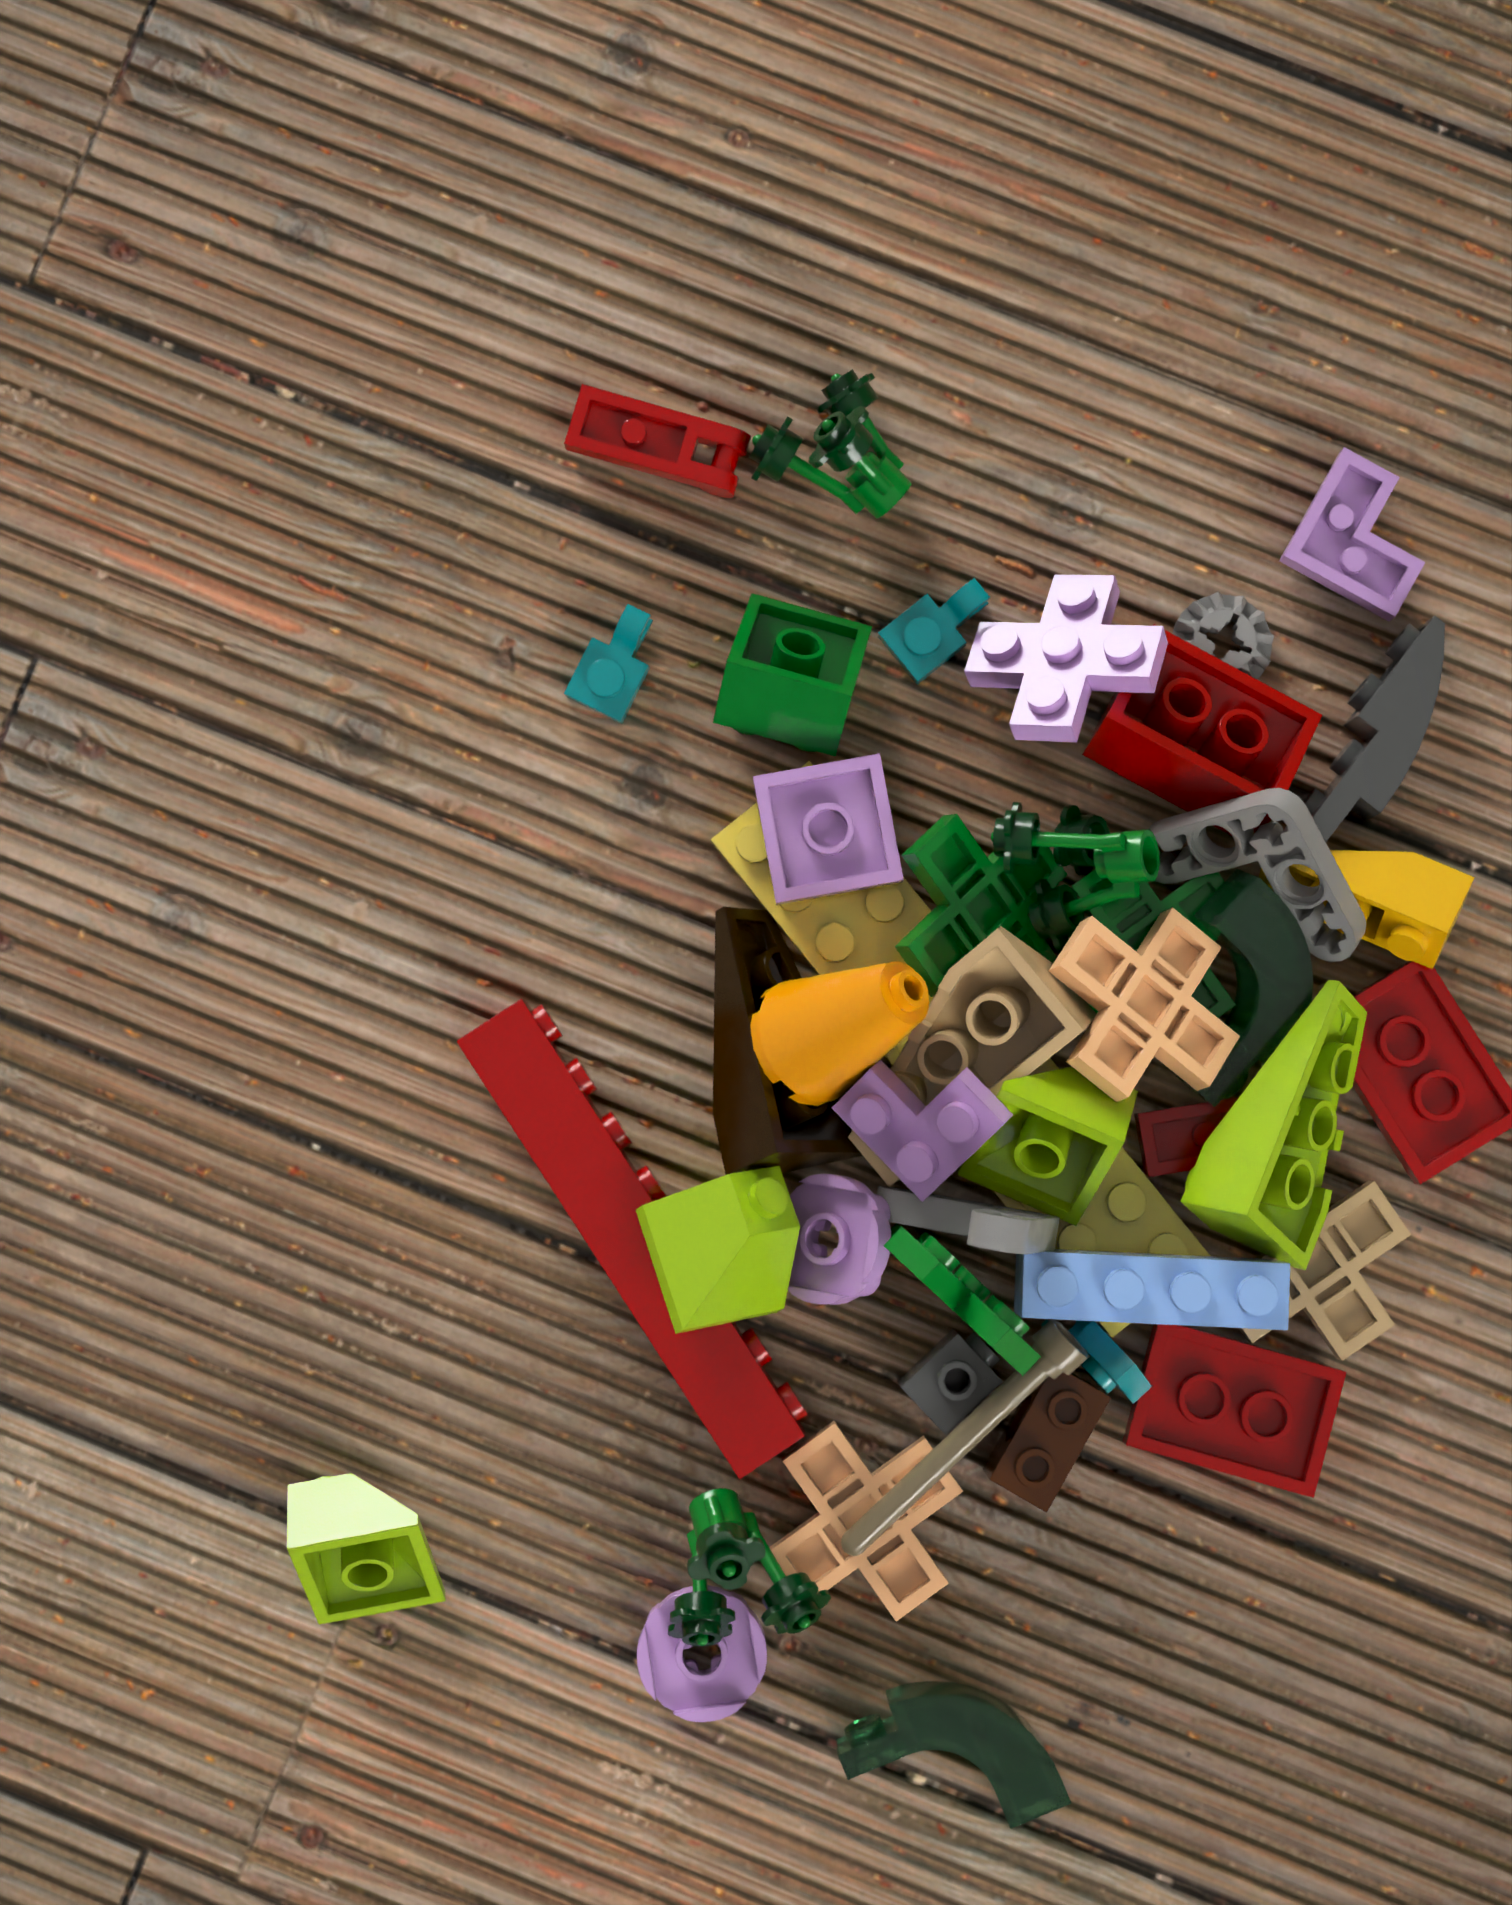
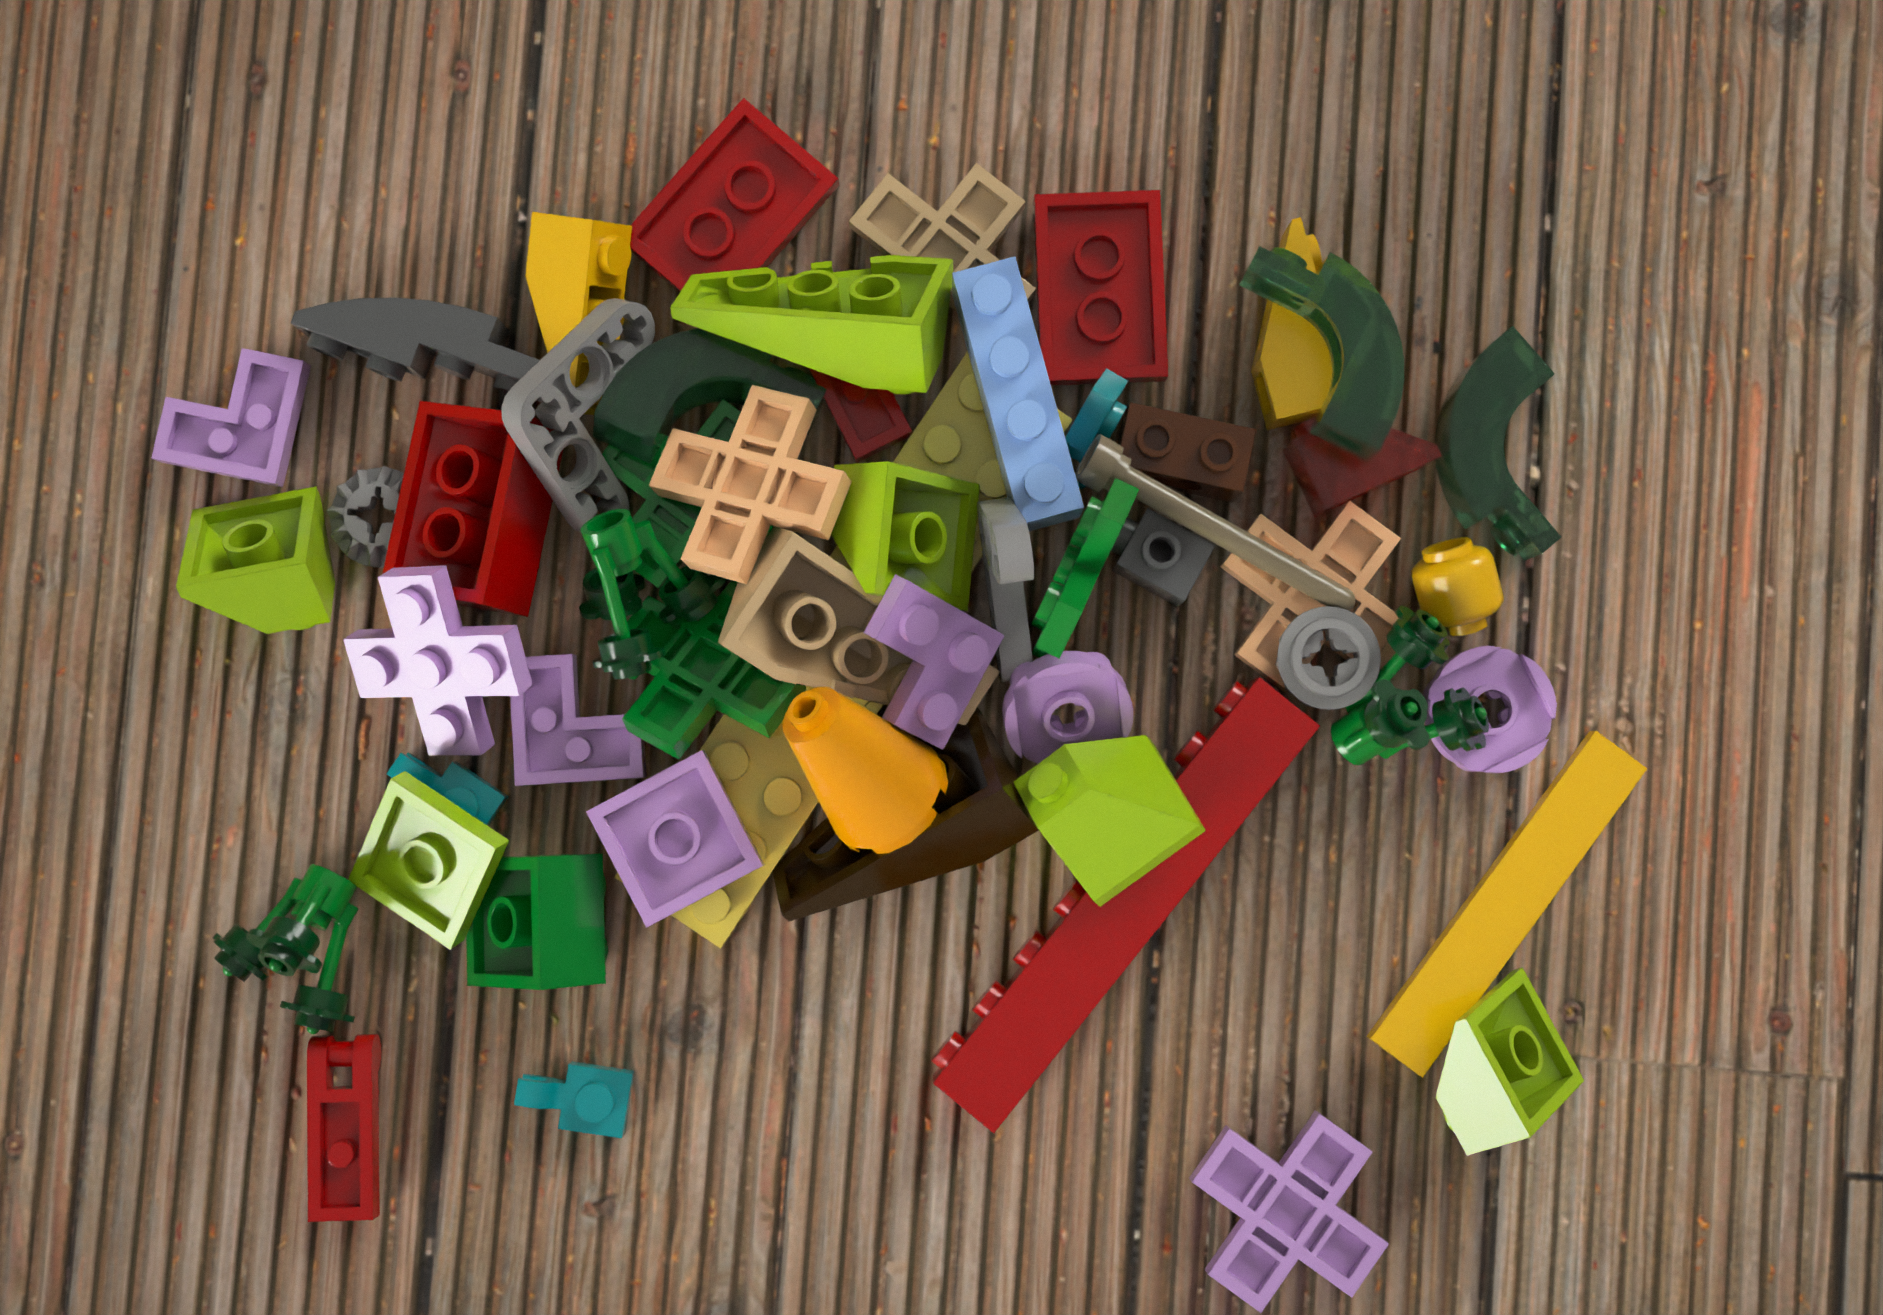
camera: 110 degrees left, 0 degrees up
(291, 1297) = (1288, 1211): none -> lavender plate
(513, 1609) = (1506, 902): none -> yellow tile
(820, 1534) = (1346, 634): none -> light grey gear
(832, 1662) = (1458, 585): none -> yellow head
(881, 592) = (427, 859): none -> lime plate
(949, 747) = (557, 743): none -> lavender plate
(989, 1599) = (1335, 476): none -> clear red slope
(1105, 1578) = (1291, 356): none -> yellow slope
(1105, 1643) = (1359, 337): none -> clear green arch
(1213, 520) = (261, 561): none -> lime slope

